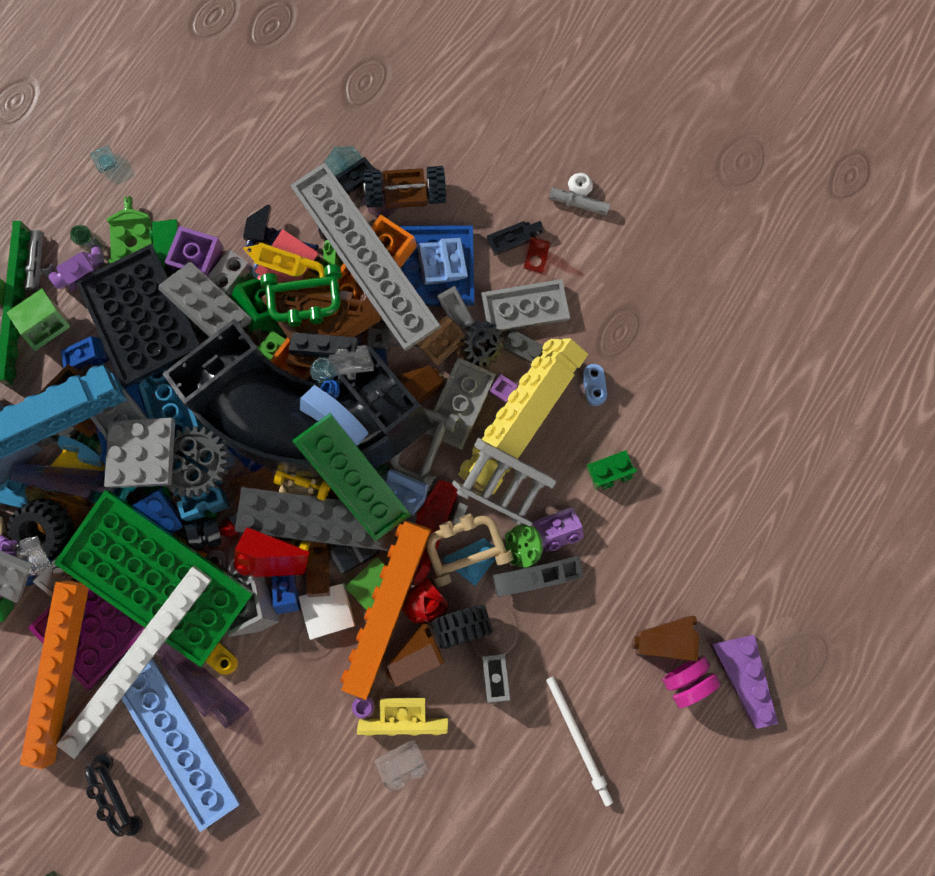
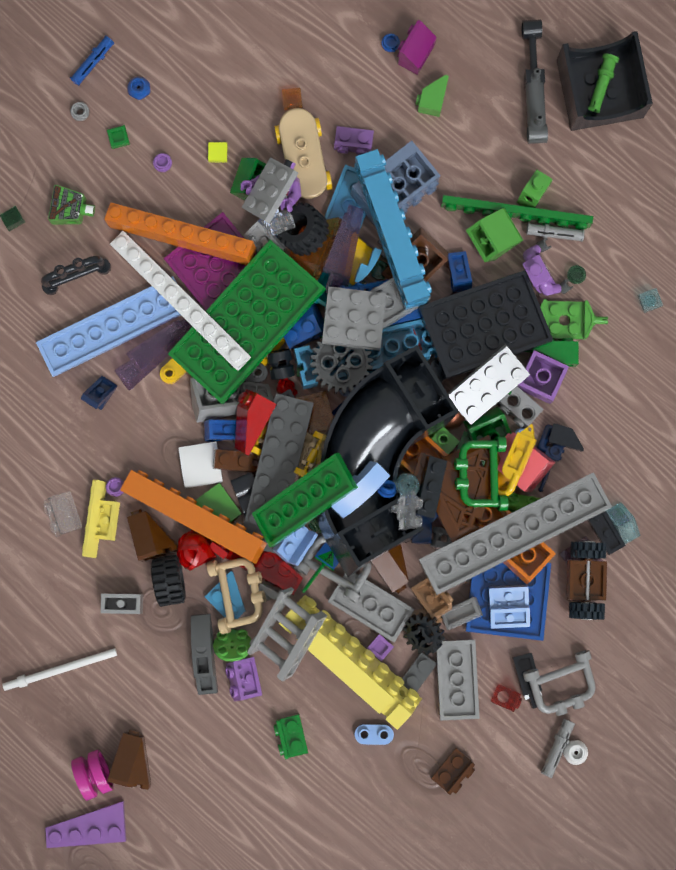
camera: 100 degrees right, 5 degrees up
(30, 817) = (68, 207): none -> torso
(254, 743) = (99, 393): none -> dark blue slope
(414, 455) = (327, 558): none -> piece
(529, 188) = (576, 701): none -> light grey bar
(620, 299) = (453, 771): none -> reddish brown bracket

